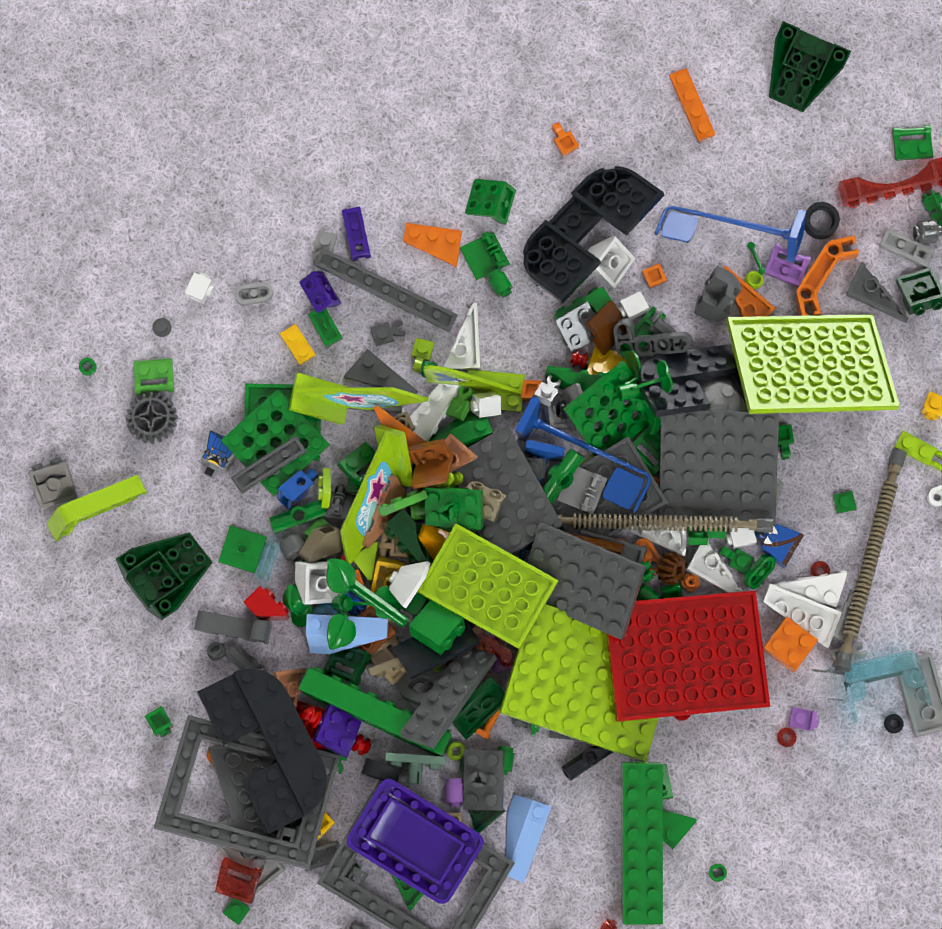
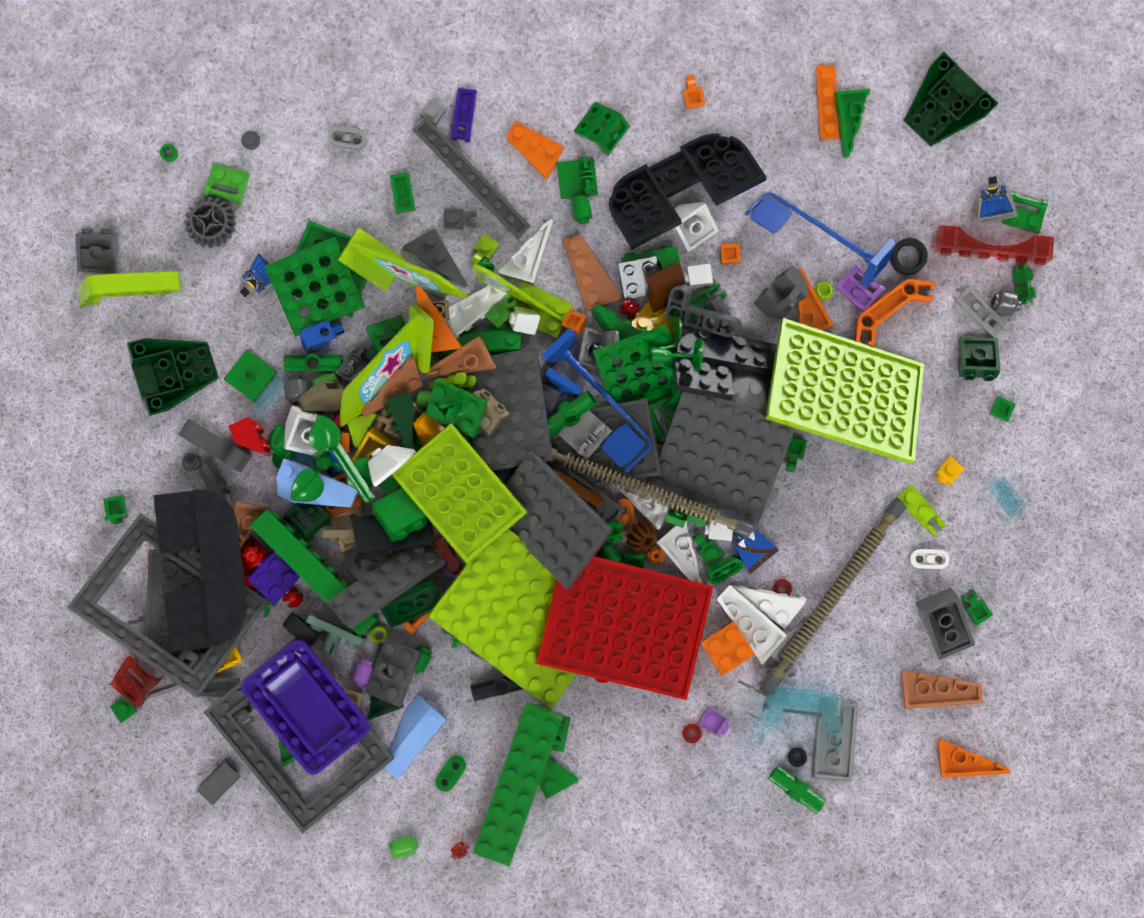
camera: 20 degrees right, 5 degrees up
(199, 288) = (298, 115): white brick -> none
(268, 464) = (299, 305): dark grey tile -> none
(297, 344) = (371, 201): yellow plate -> none
(319, 291) = (409, 157): dark purple bracket -> none
(324, 492) = (347, 340): lime plate -> none
(400, 503) = (405, 385): bright green plate -> none
(432, 463) = (451, 358): dark orange bracket -> none
(529, 341) = (590, 276): none -> nougat wing
(547, 391) = (587, 329): plate -> none
(572, 858) = (450, 773): none -> green plate
(716, 106) = (849, 114): none -> green wing
(719, 878) = (580, 842): green bush -> none
(751, 246) = (833, 257): green hinge -> none
(844, 502) = (830, 532): green plate -> none
(869, 291) = (928, 340): dark grey wing -> none
(883, 142) = (996, 202): none -> torso
(905, 754) = (797, 789): none -> green piece

